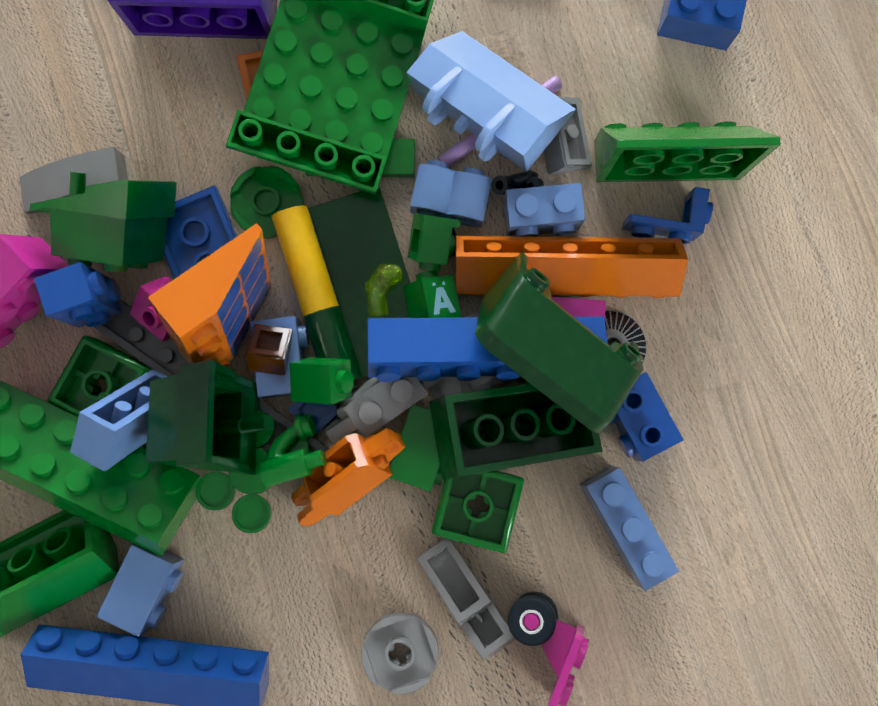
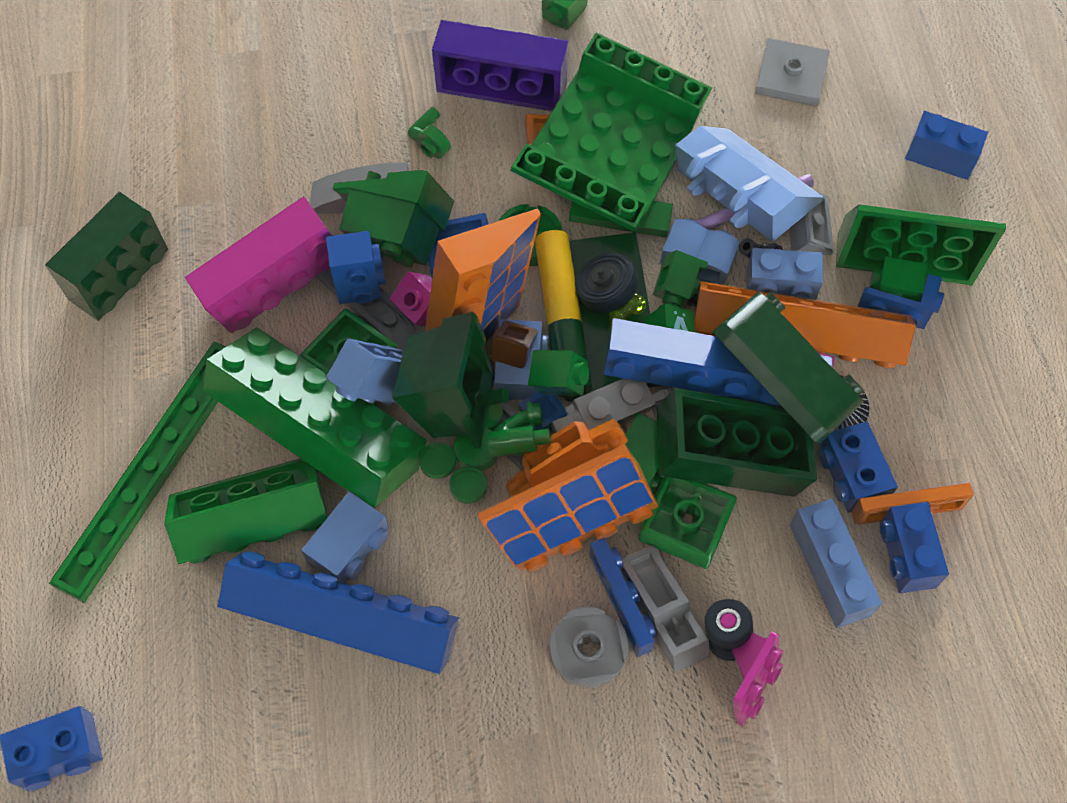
camera: 10 degrees right, 20 degrees down
(137, 106) = (431, 139): none -> green plate
(356, 258) = (606, 282): none -> black wheel
(359, 537) = (570, 509): none -> slope
(426, 598) = (623, 597): none -> blue plate
(664, 196) = (899, 278): none -> green brick
(700, 447) = (939, 499): none -> orange tile
(703, 497) = (913, 547): none -> blue brick

